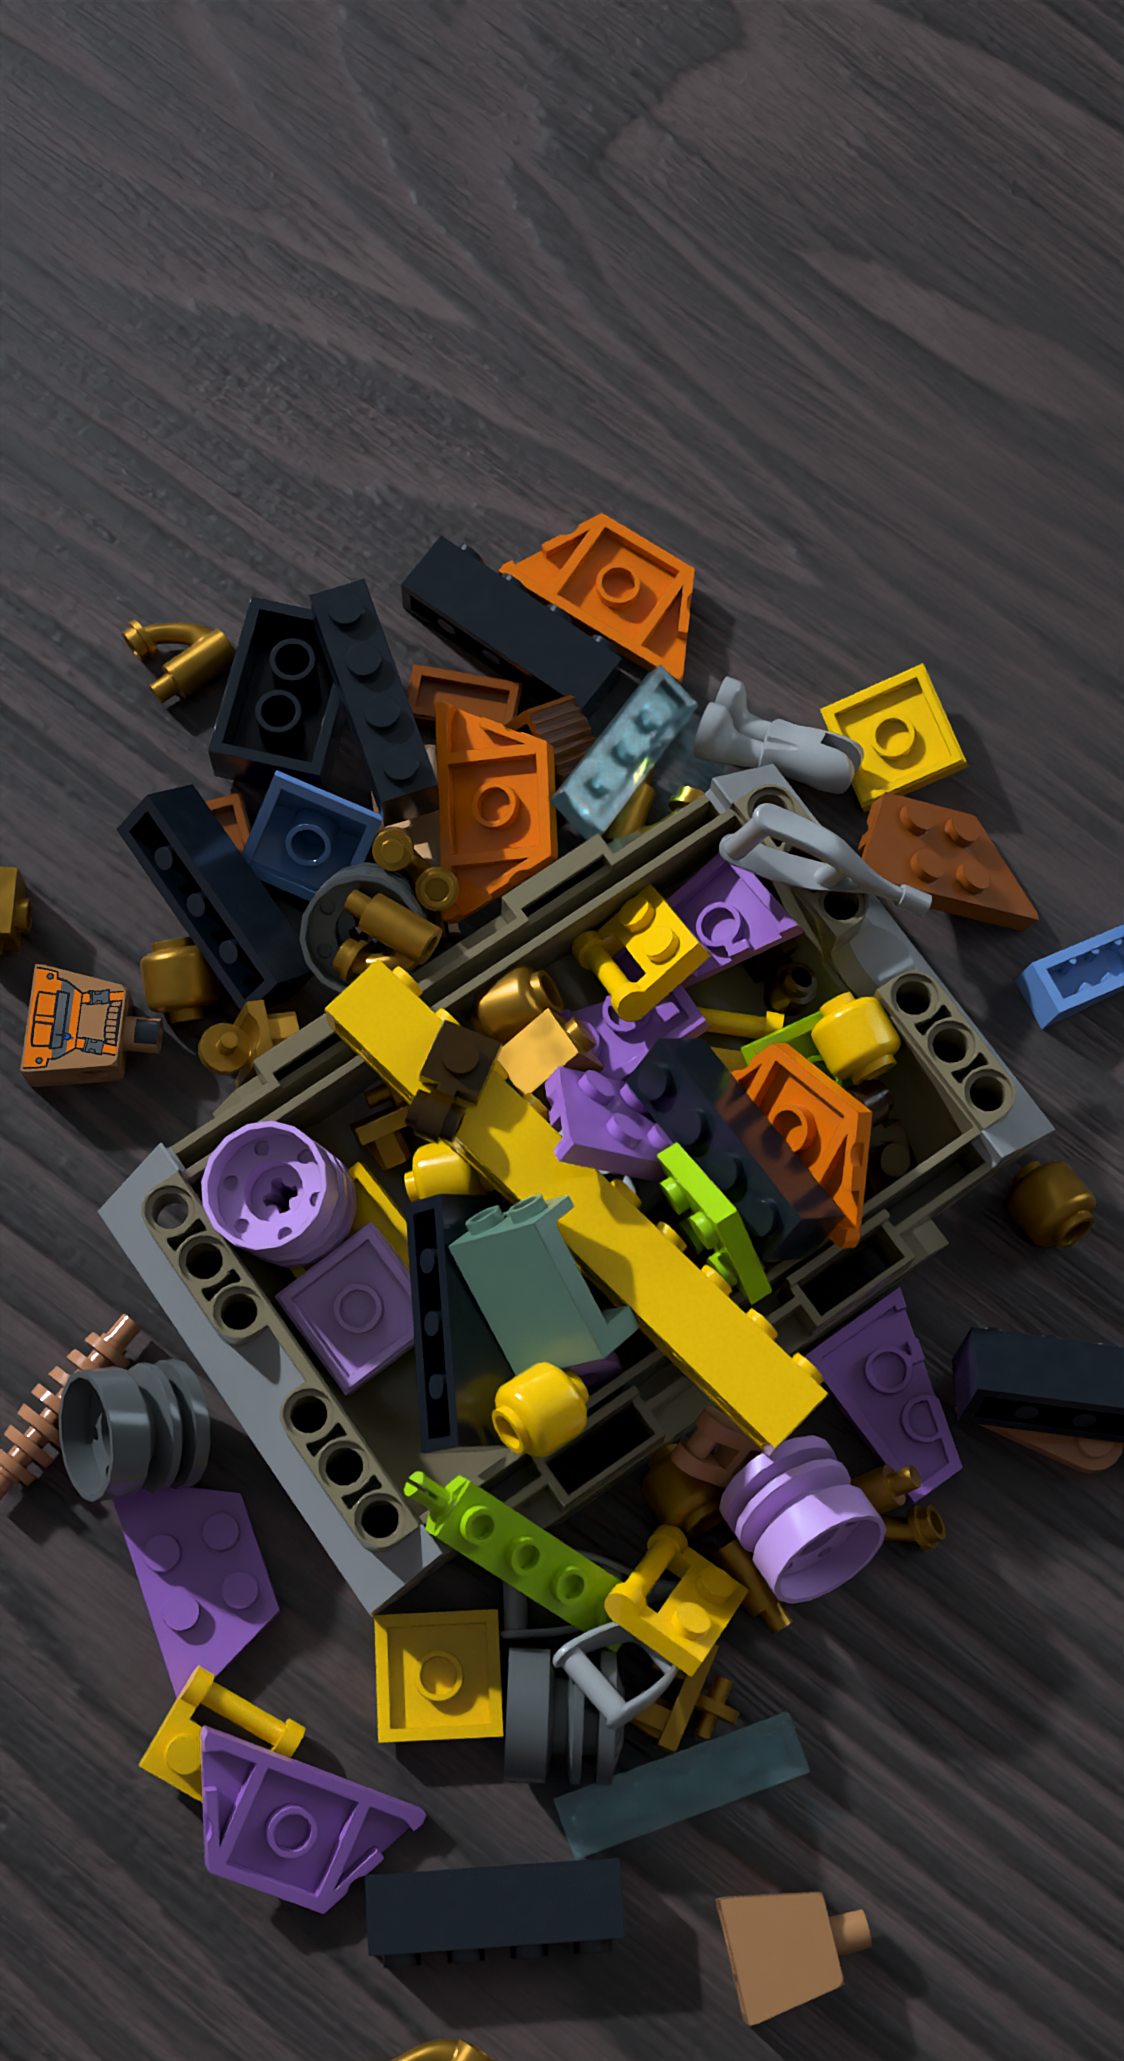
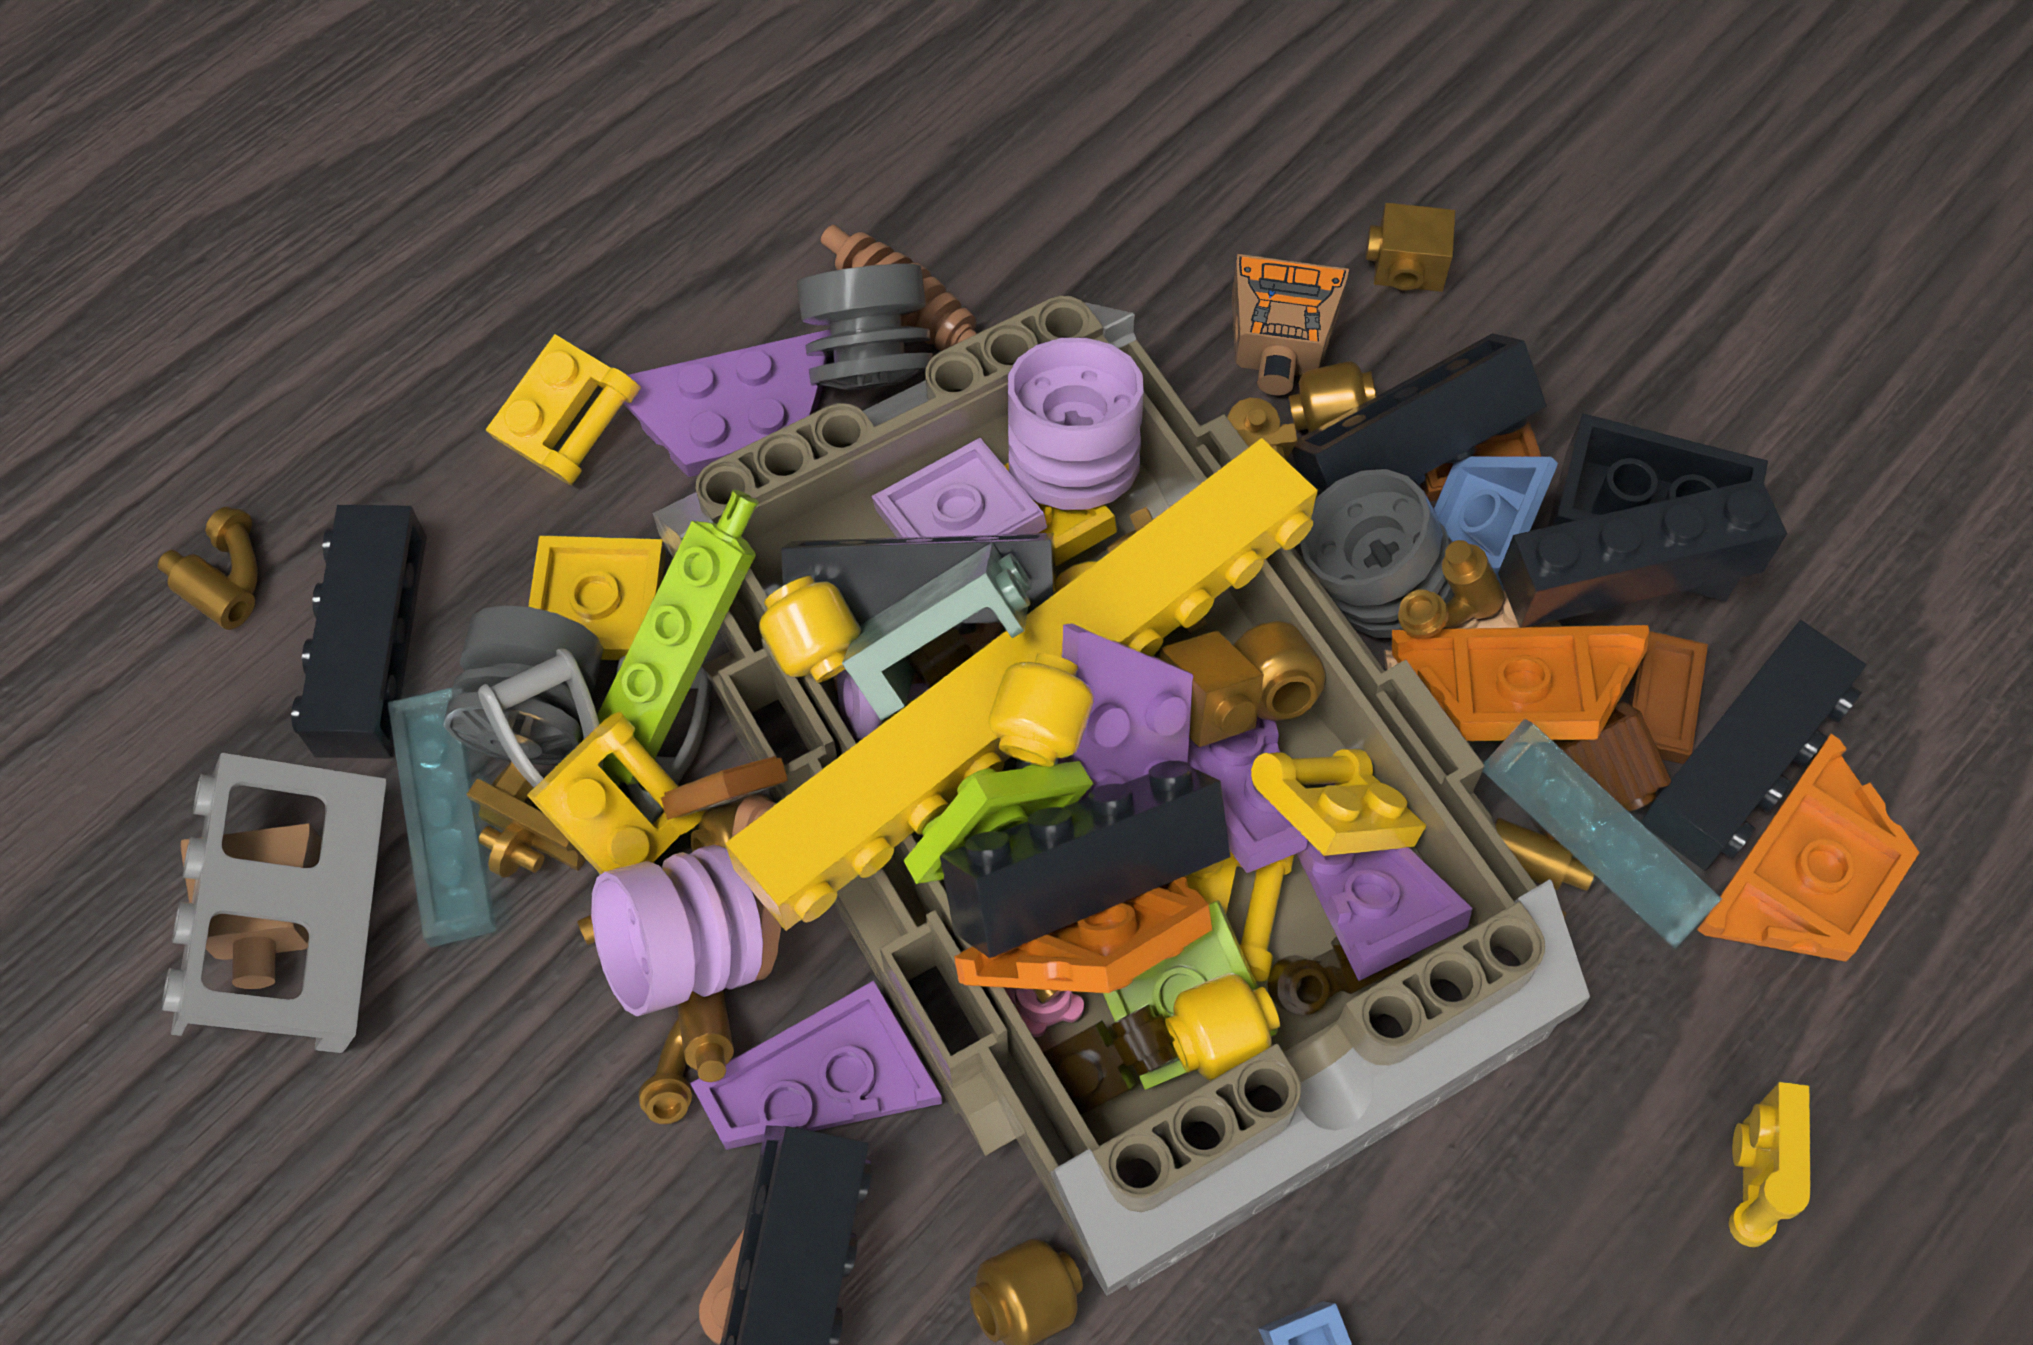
camera: 100 degrees right, 10 degrees down
(204, 660) = (1687, 423): pearl gold plant -> none
(291, 1823) = (477, 456): medium lavender wing -> none
(391, 924) = (1359, 546): pearl gold plant -> none
(458, 1068) = (1184, 553): dark brown plate -> none
(639, 1176) = (1041, 710): none -> yellow head
(671, 1491) = (724, 787): none -> dark orange tile
(796, 1863) = (326, 899): none -> light grey window
(800, 753) = (1618, 1022): light grey piece -> none
(842, 867) = (1437, 969): light grey piece -> none
(869, 633) = (1775, 1163): none -> yellow plate
(901, 734) = (1642, 1176): yellow plate -> none
(944, 857) = (1469, 1196): dark orange wing -> none

